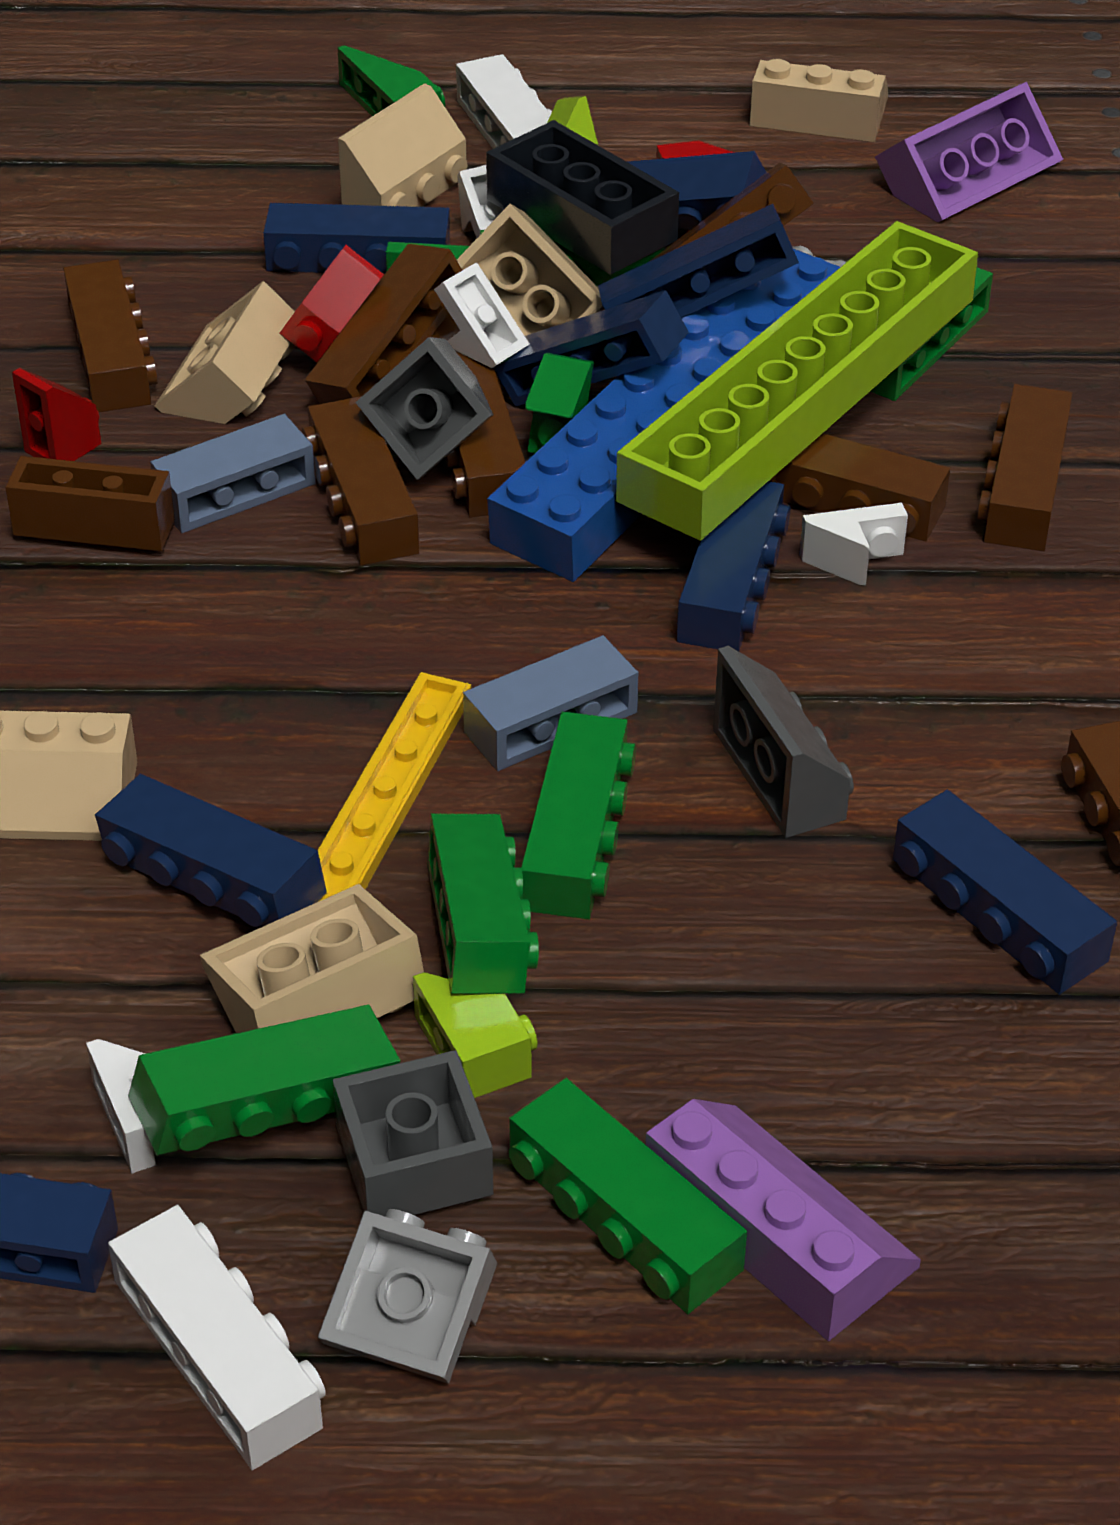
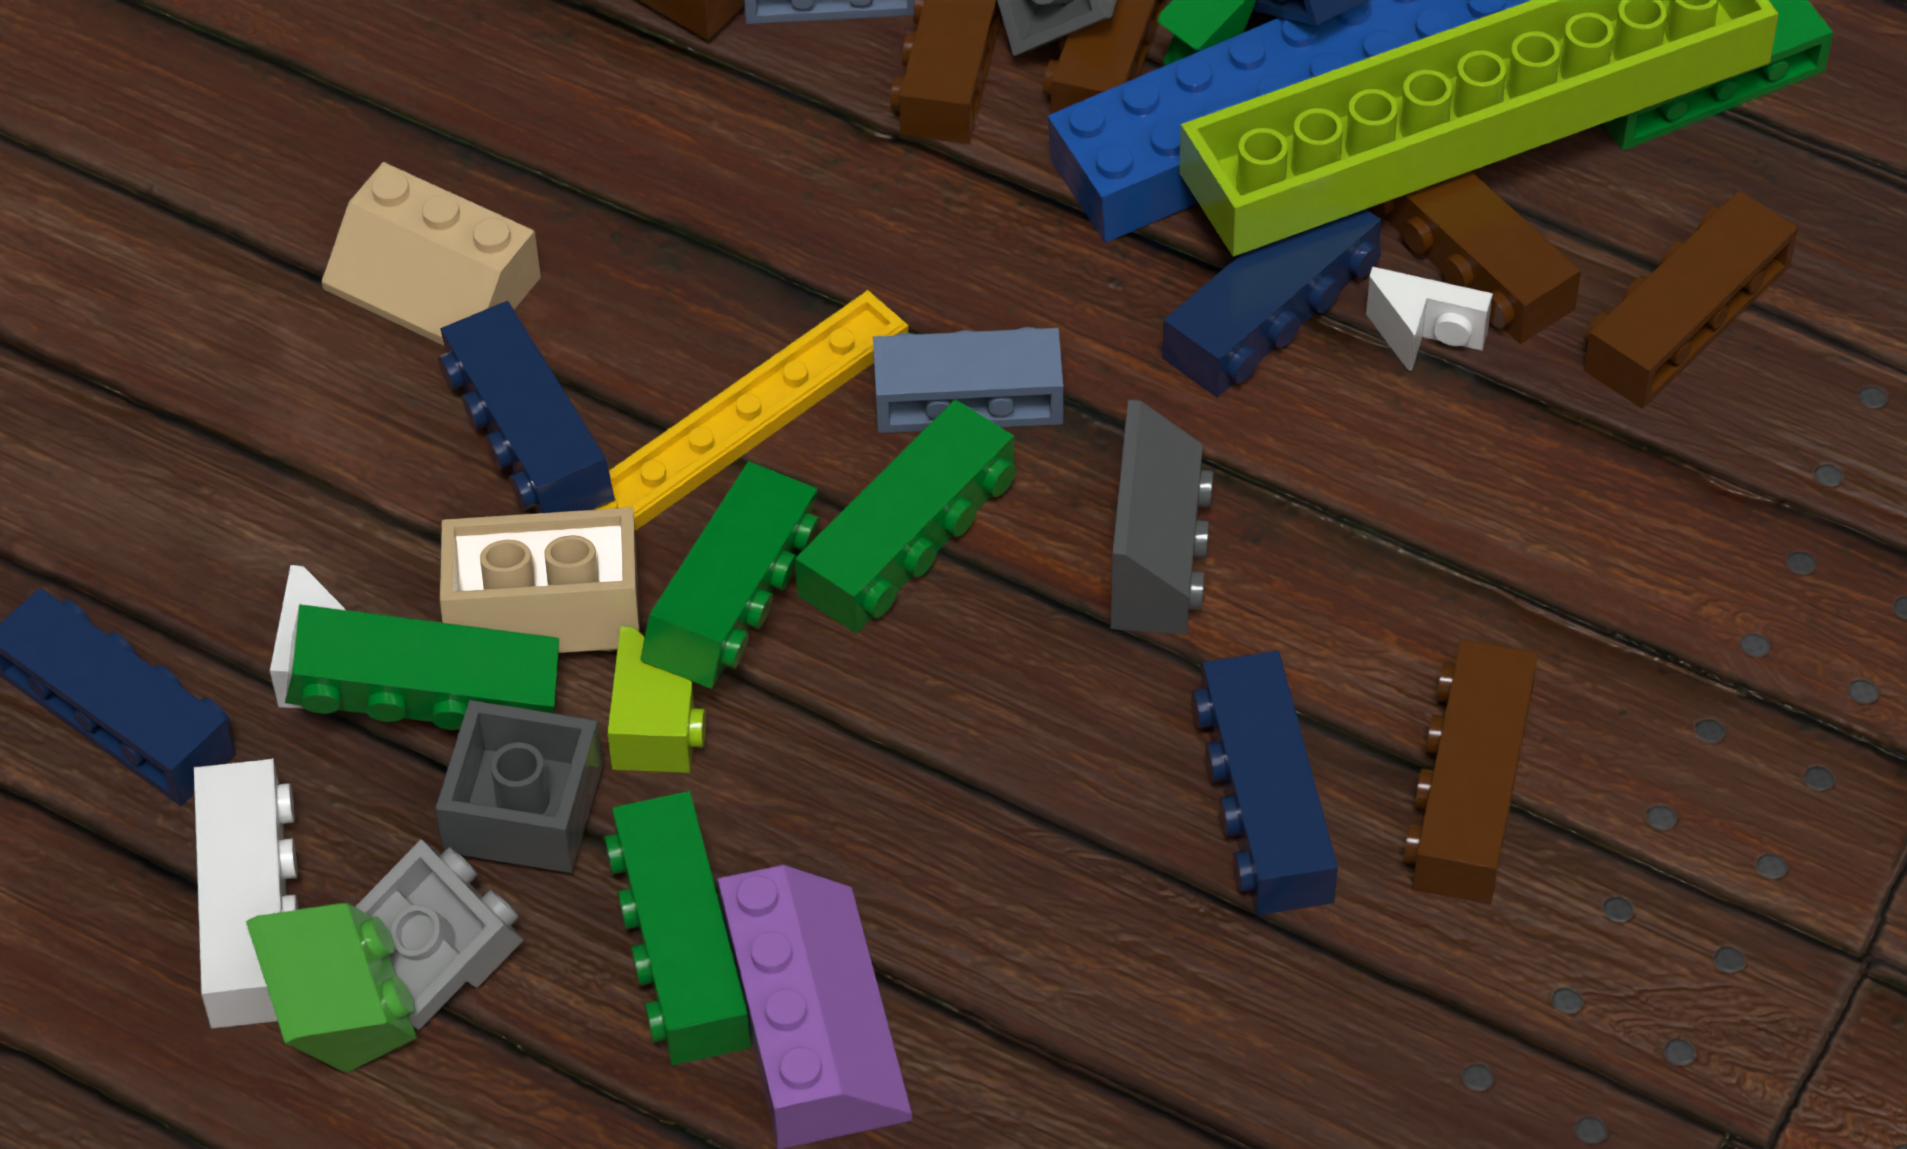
camera: 30 degrees right, 10 degrees up
(372, 1364) = (333, 983): none -> bright green slope

